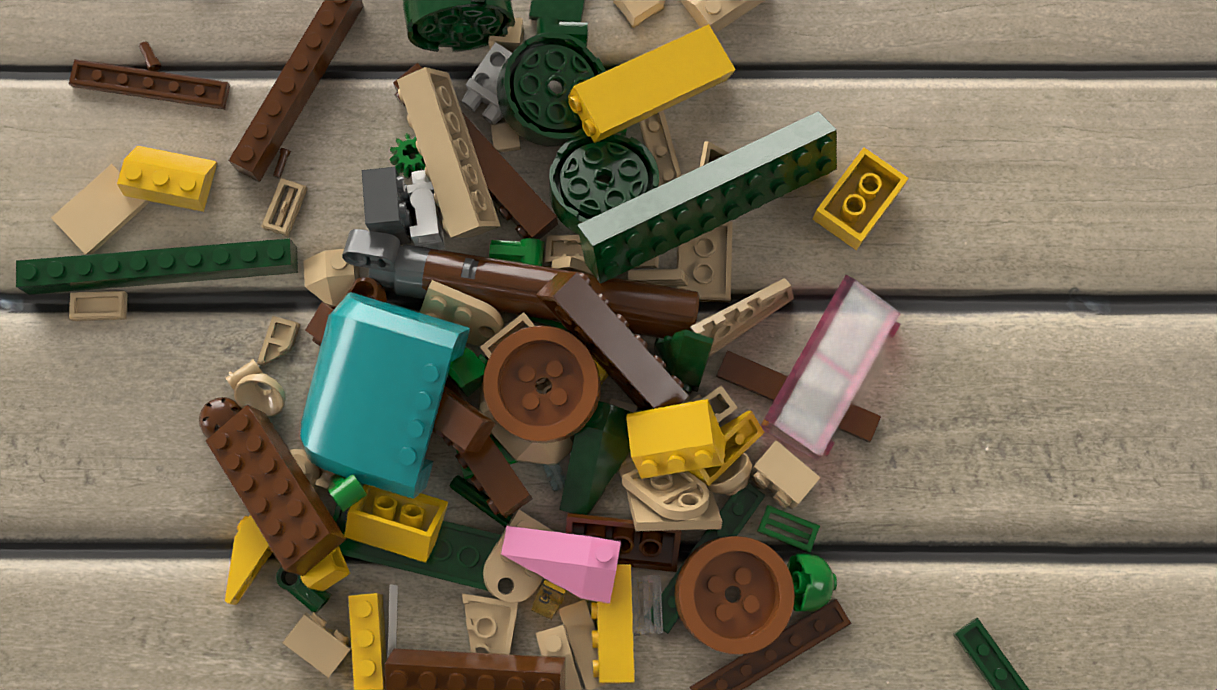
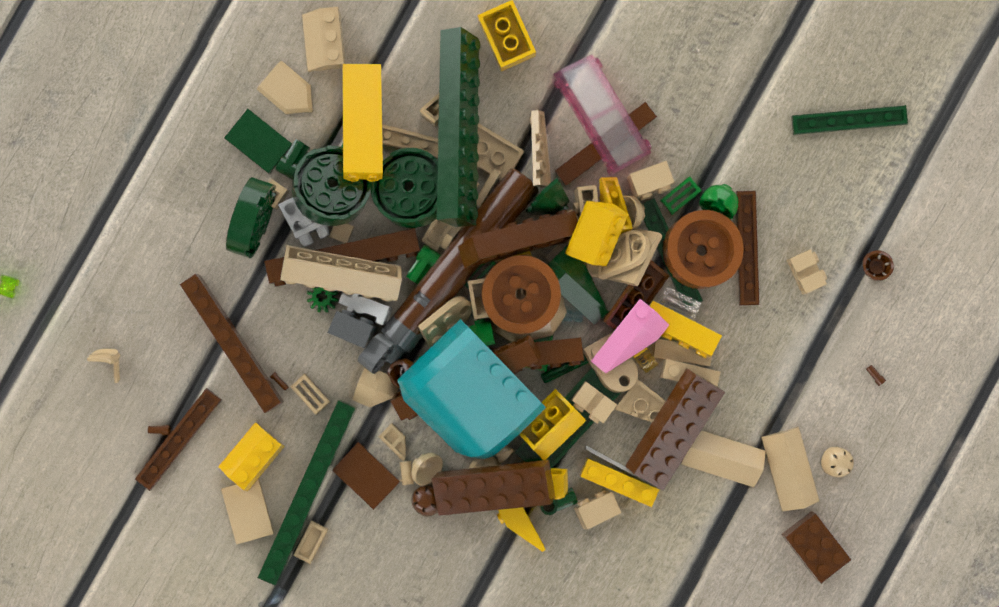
camera: 65 degrees left, 10 degrees up
(215, 328) = (366, 475): none -> reddish brown tile
(345, 491) = (518, 446): green piece -> none
(455, 560) = (593, 402): none -> tan brick

